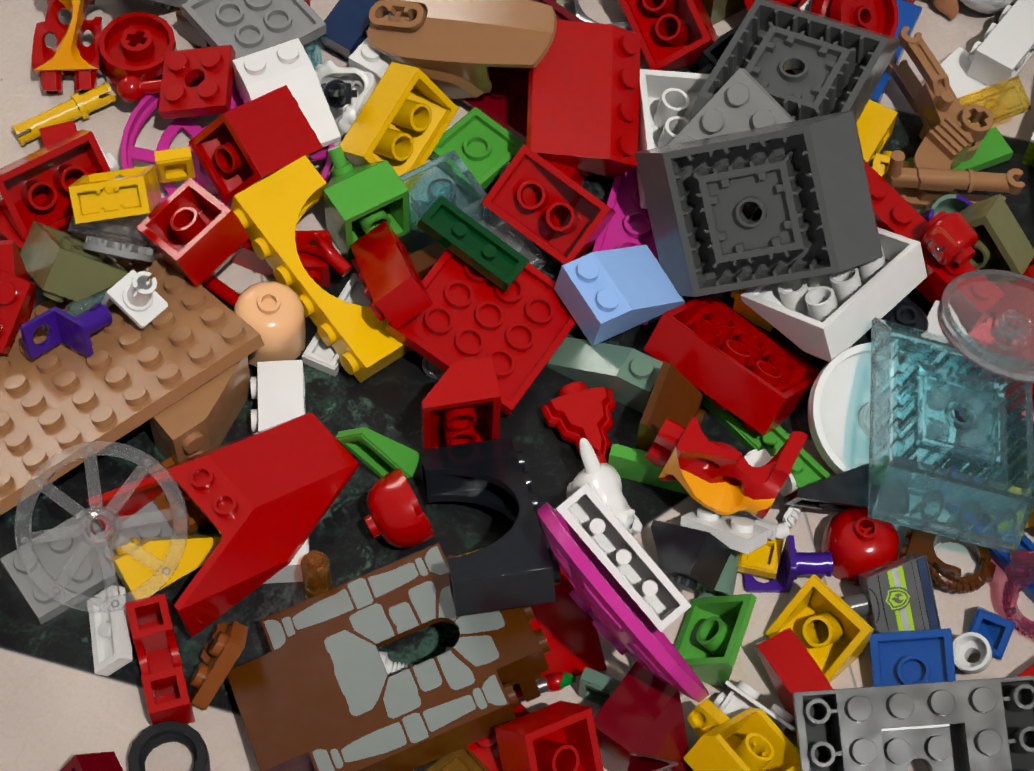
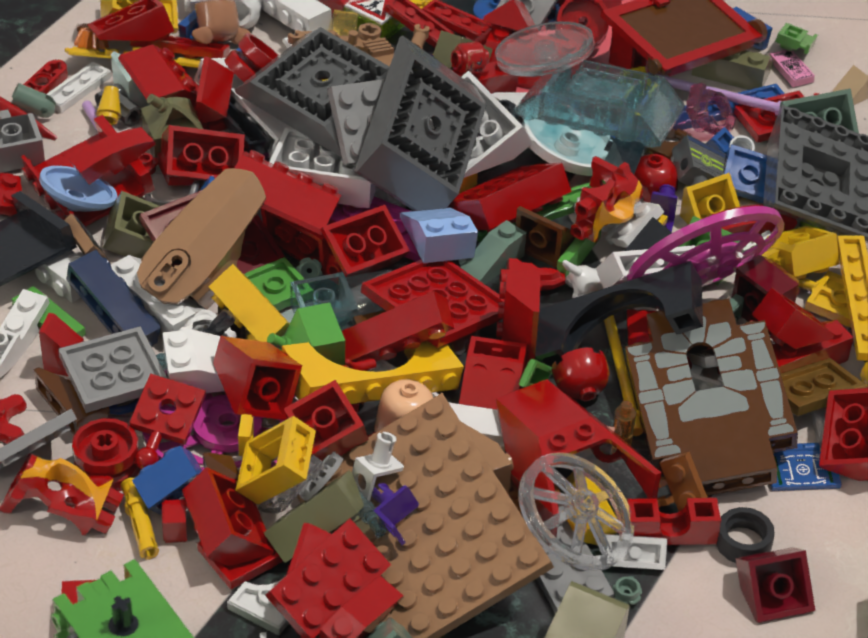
camera: 75 degrees left, 15 degrees down
(42, 625) = (627, 590): none -> sand green plate
(106, 115) = (167, 478): none -> blue brick
(125, 153) = (221, 463): none -> reddish brown slope
(374, 398) = (491, 371): none -> red slope
(473, 243) = (387, 280): dark green plate -> none

